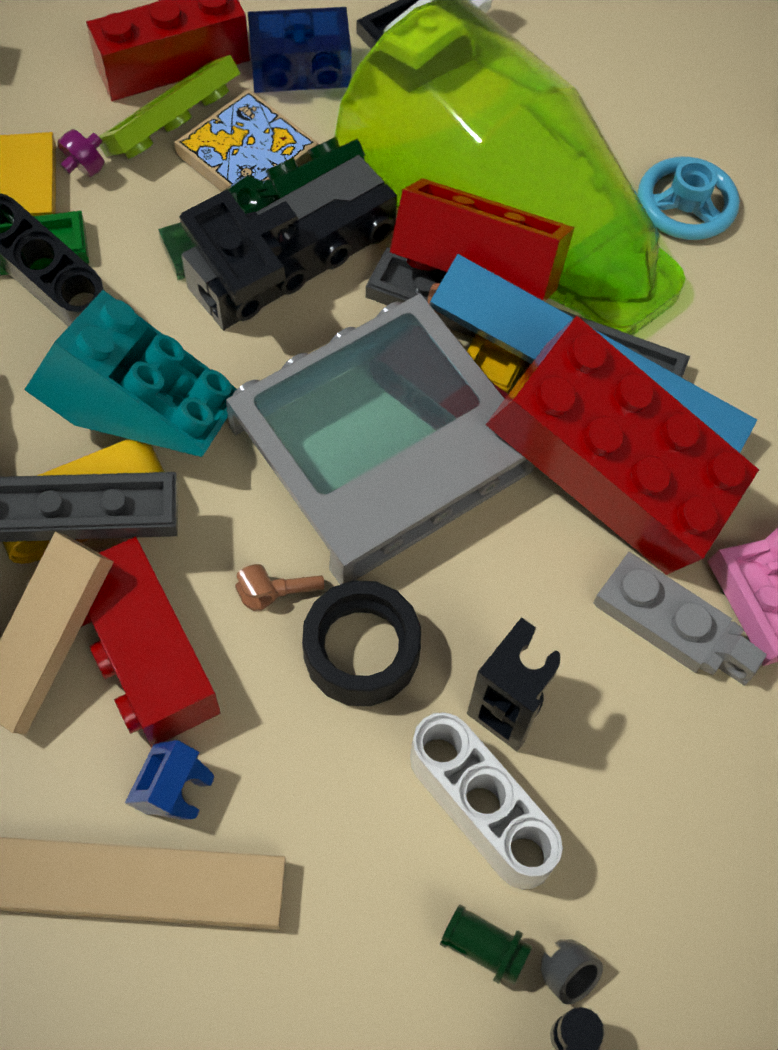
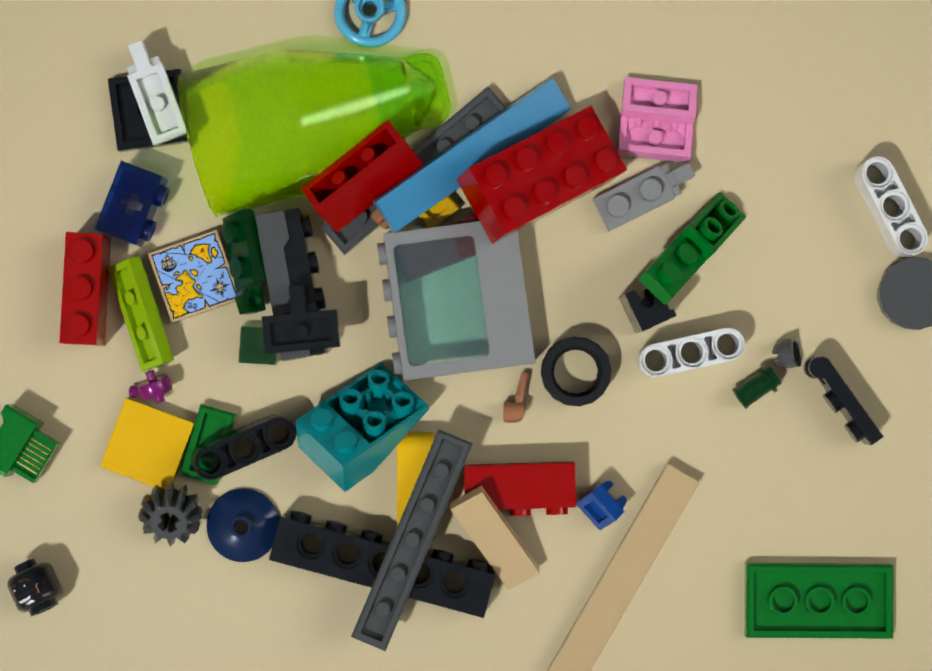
camera: 65 degrees left, 25 degrees up
(644, 713) = (691, 248): none -> green slope

